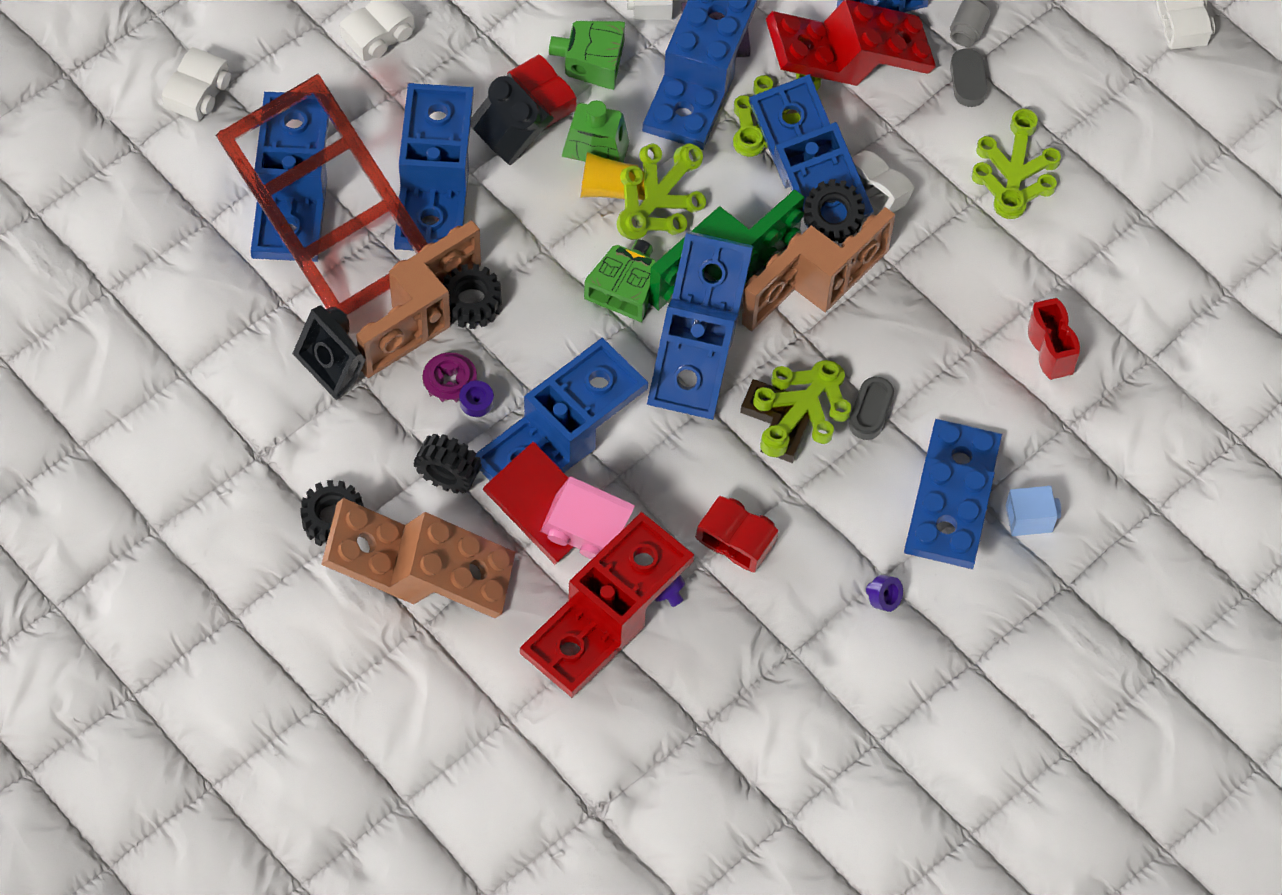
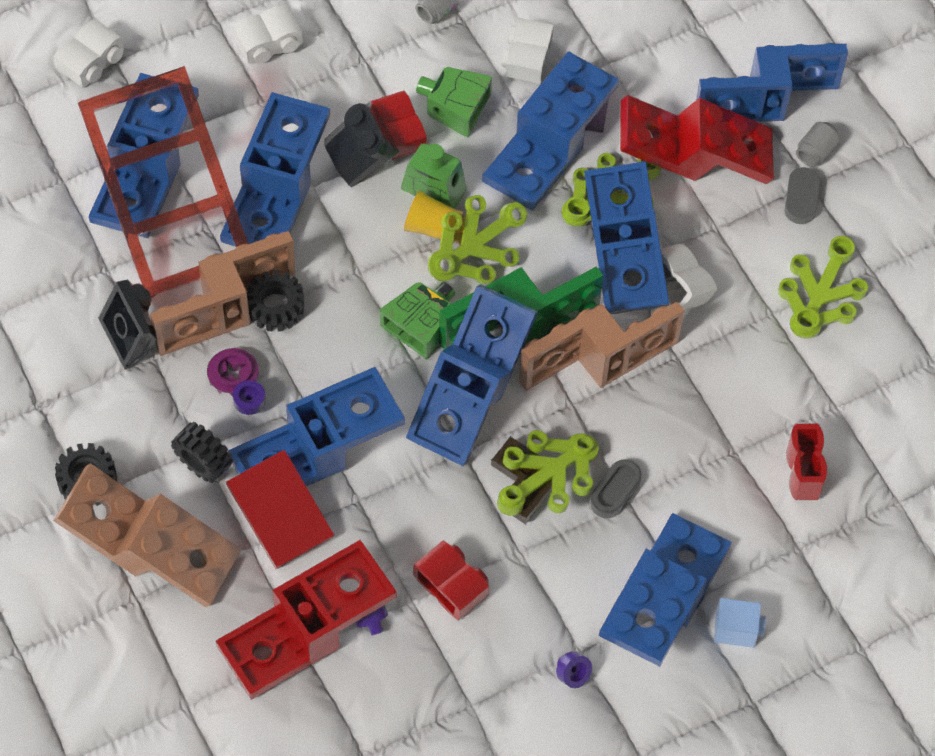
camera: 15 degrees right, 0 degrees up
(585, 517) = (308, 532): bright pink slope -> none
(843, 194) = (633, 276): black tyre -> none

